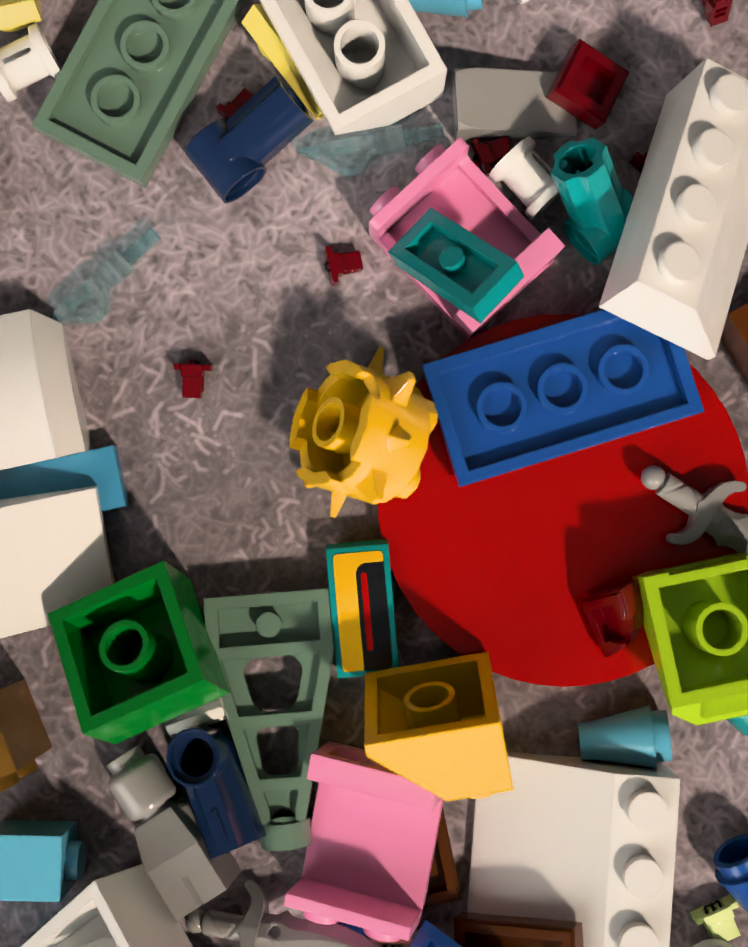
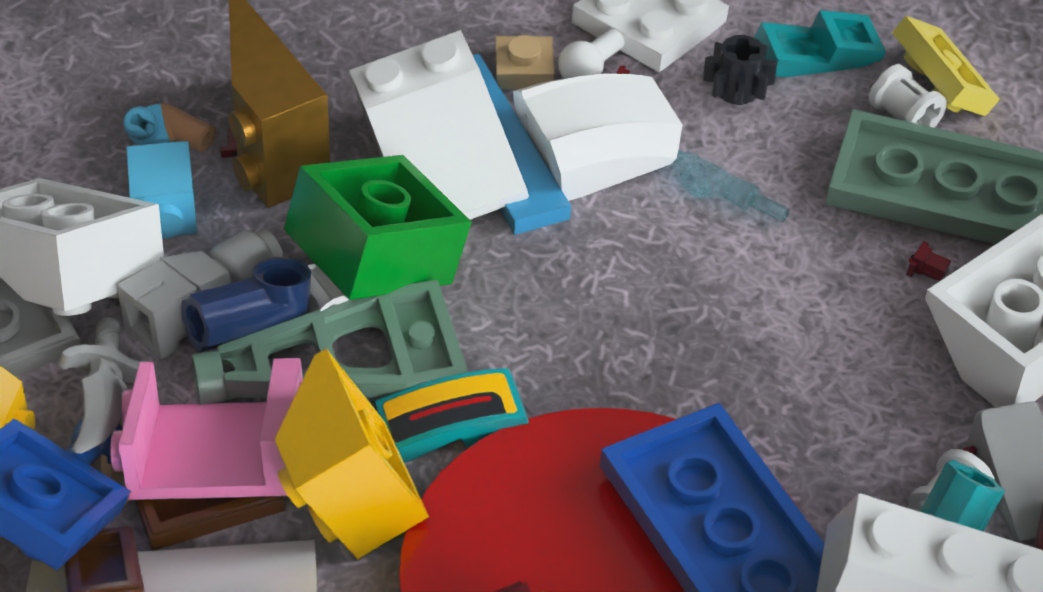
camera: 80 degrees right, 40 degrees down
(193, 377) = (652, 261): dark red piece -> none
(236, 149) = (889, 253): dark blue piece -> none
(341, 264) = (803, 359): dark red piece -> none
(362, 433) = (634, 358): yellow brick -> none
(365, 146) = (932, 364): clear light blue hand -> none
(456, 264) = (829, 414): teal plate -> none
(467, 197) = (865, 435): bright pink panel -> none

